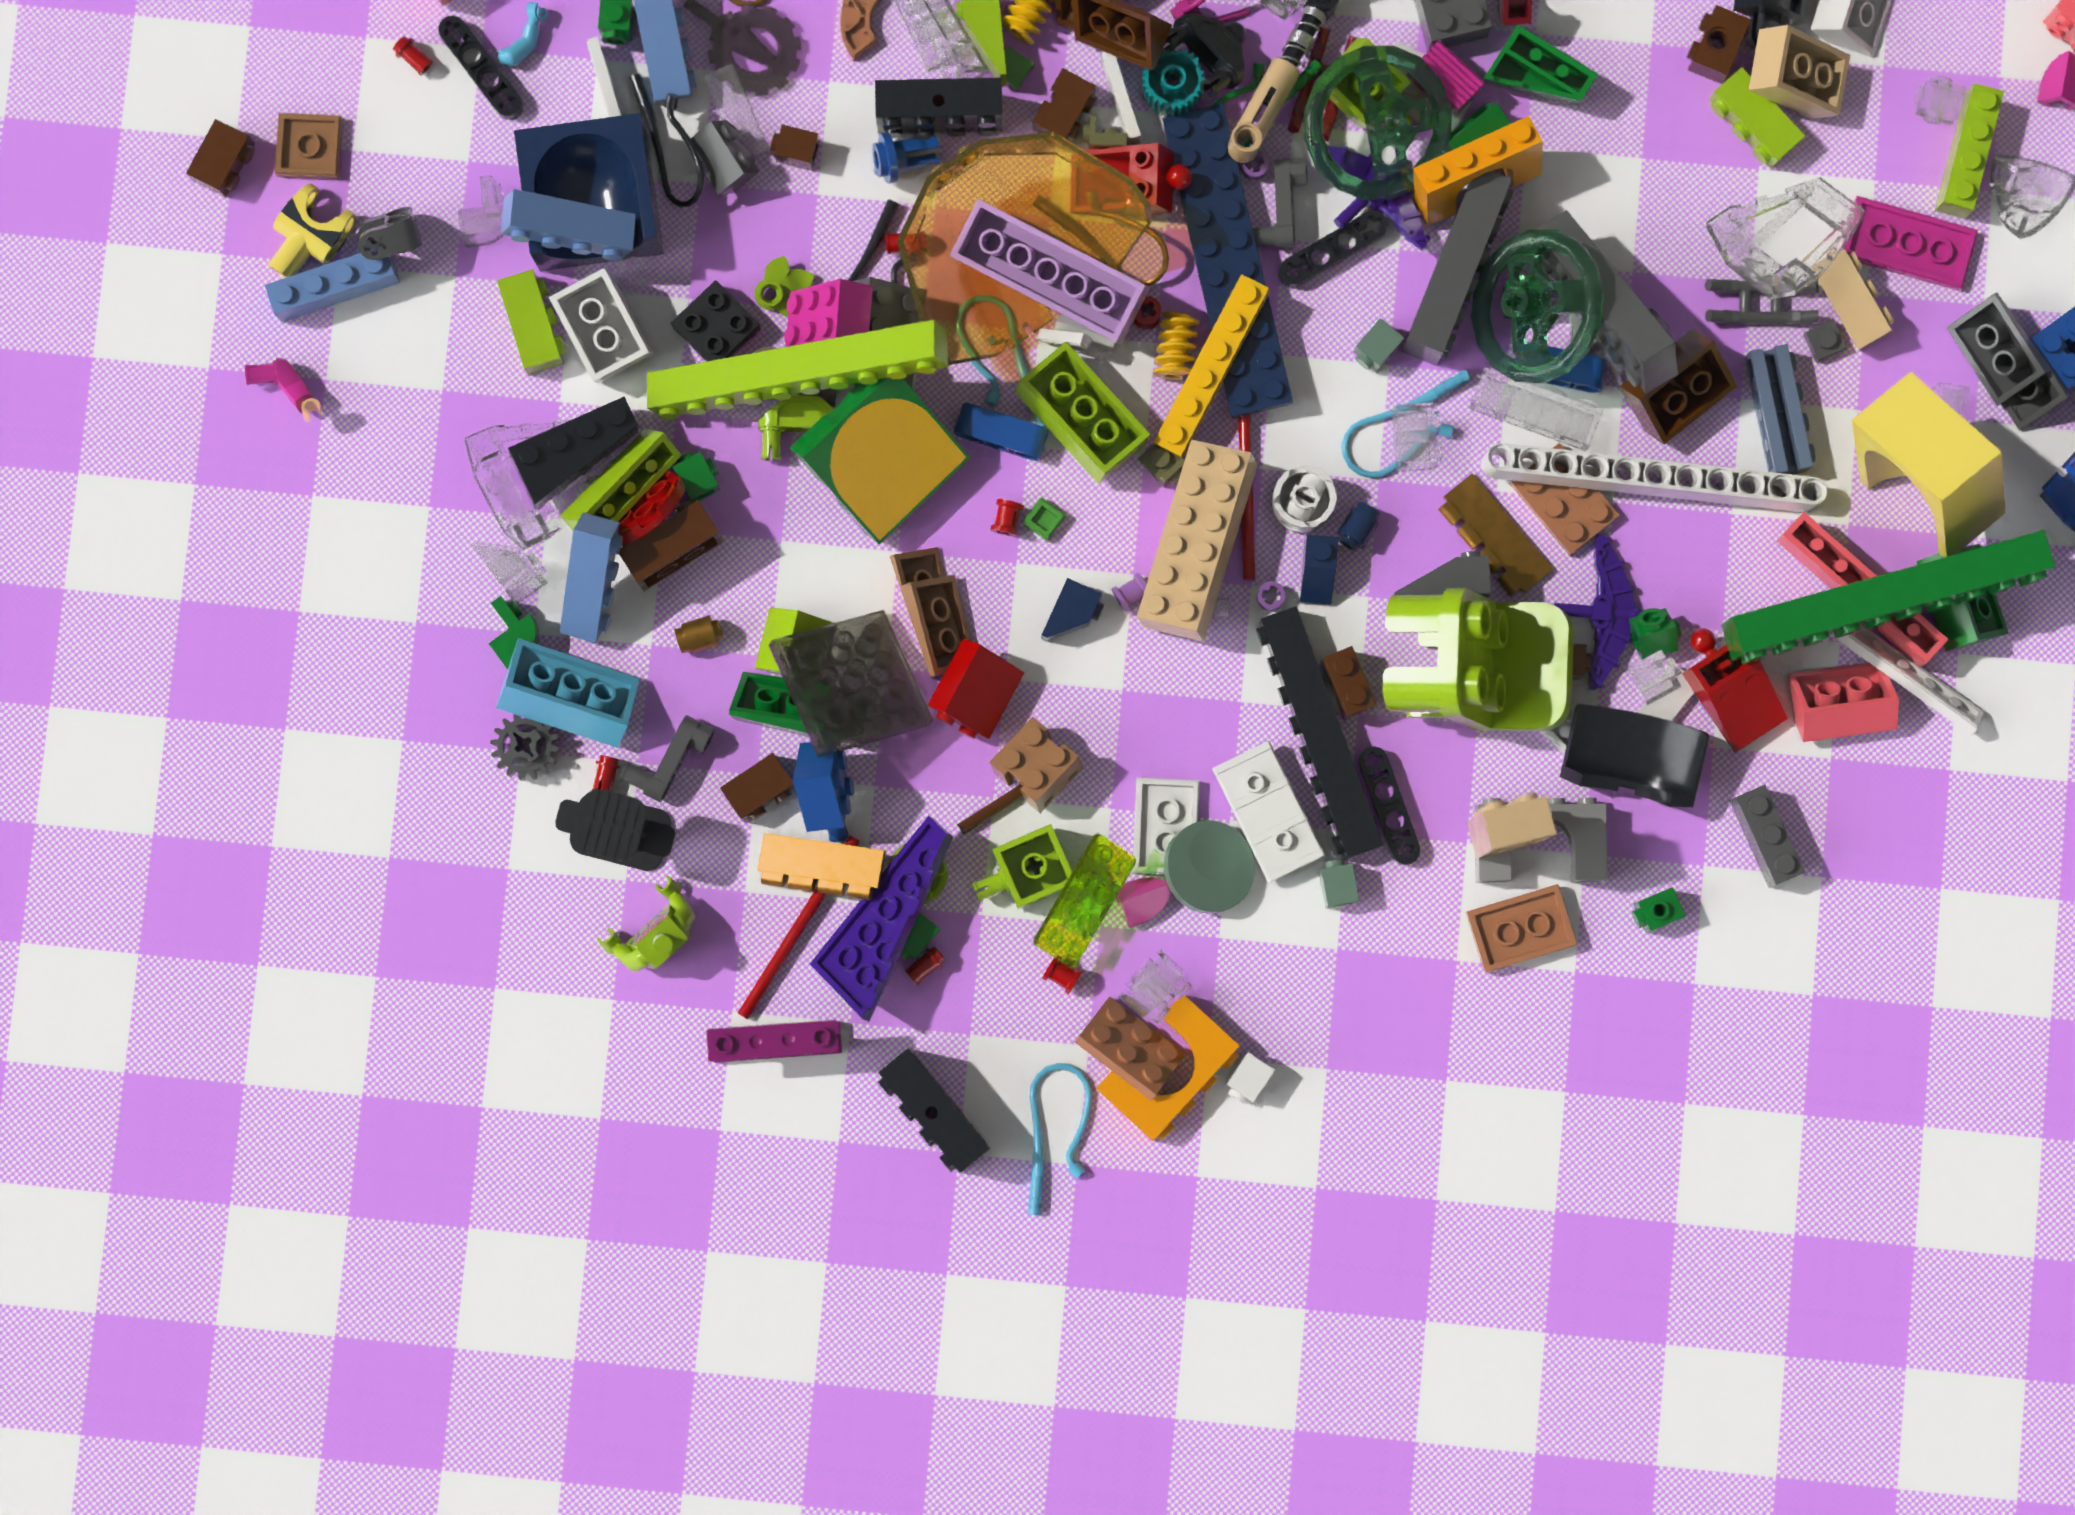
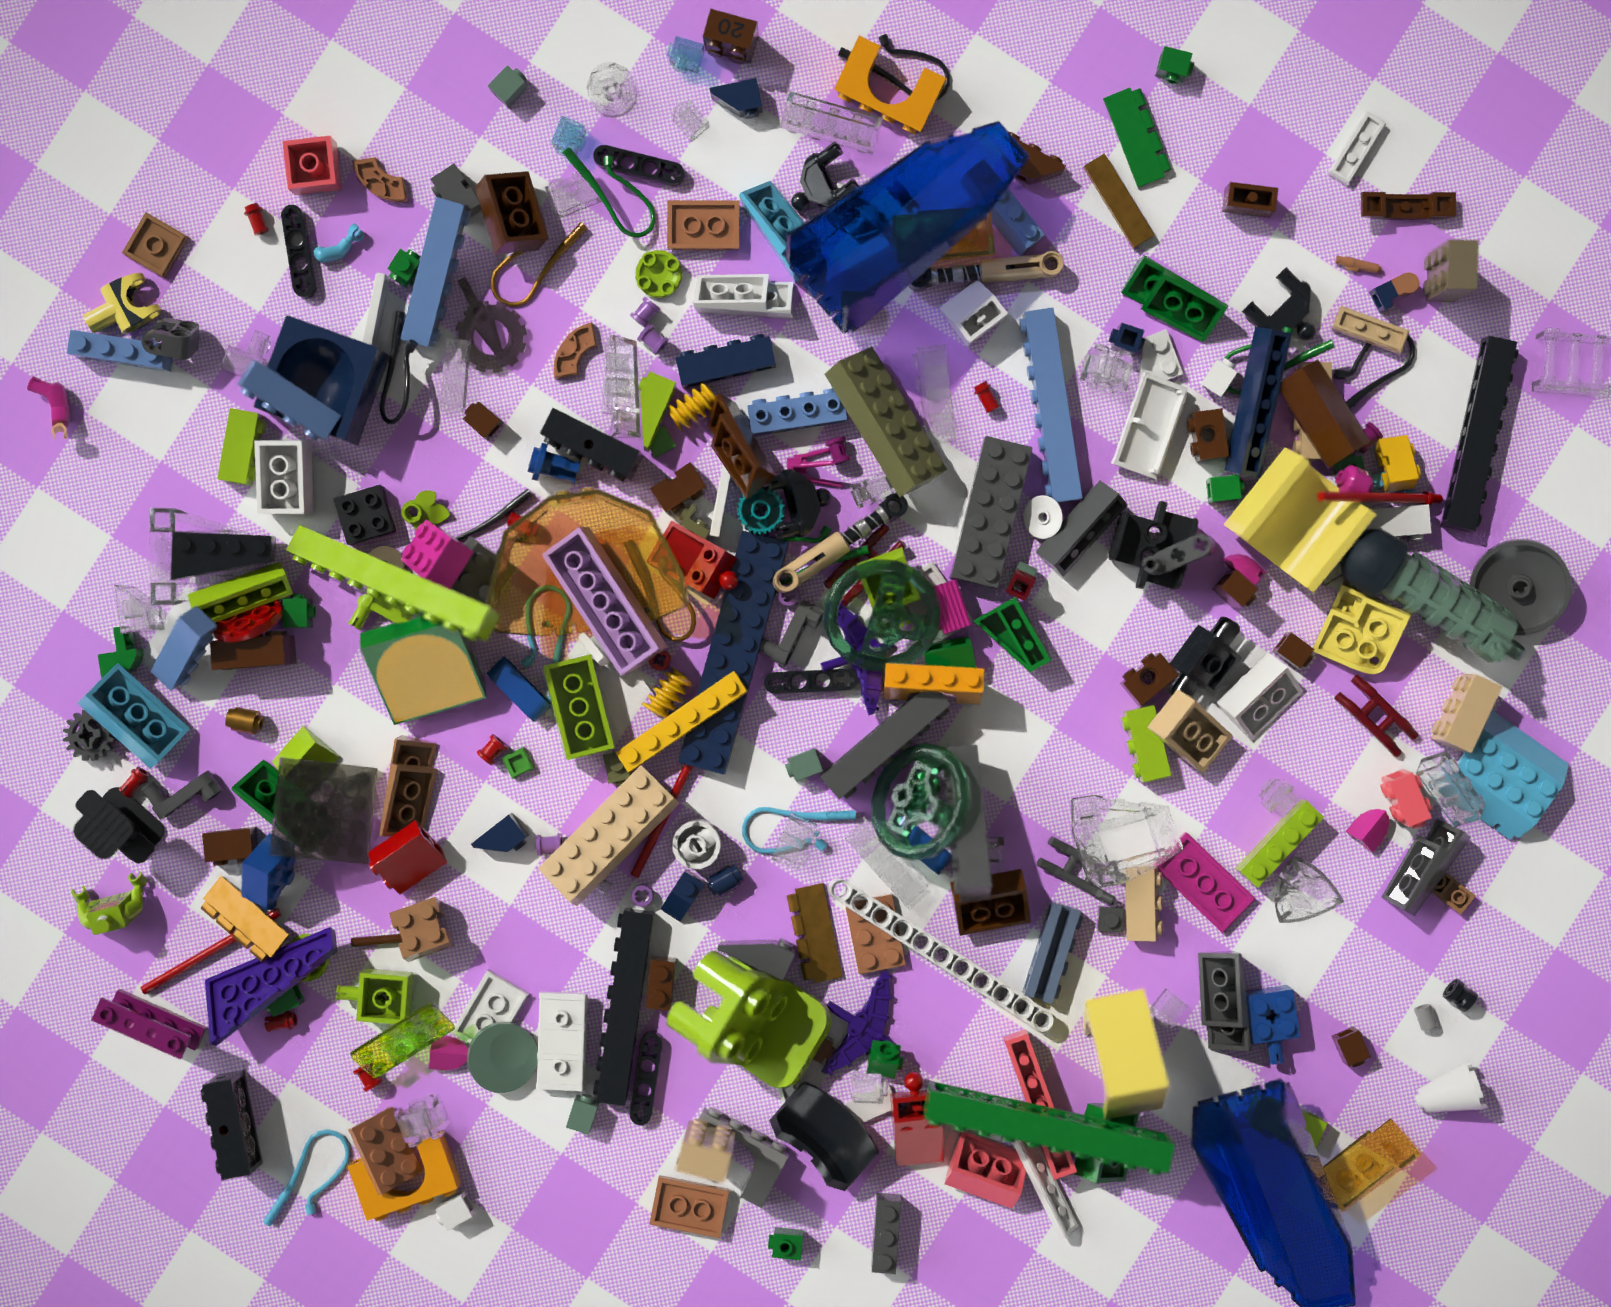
camera: 25 degrees right, 5 degrees up
(221, 158) = (89, 223): reddish brown brick -> none
(725, 157) = (429, 402): dark grey brick -> none

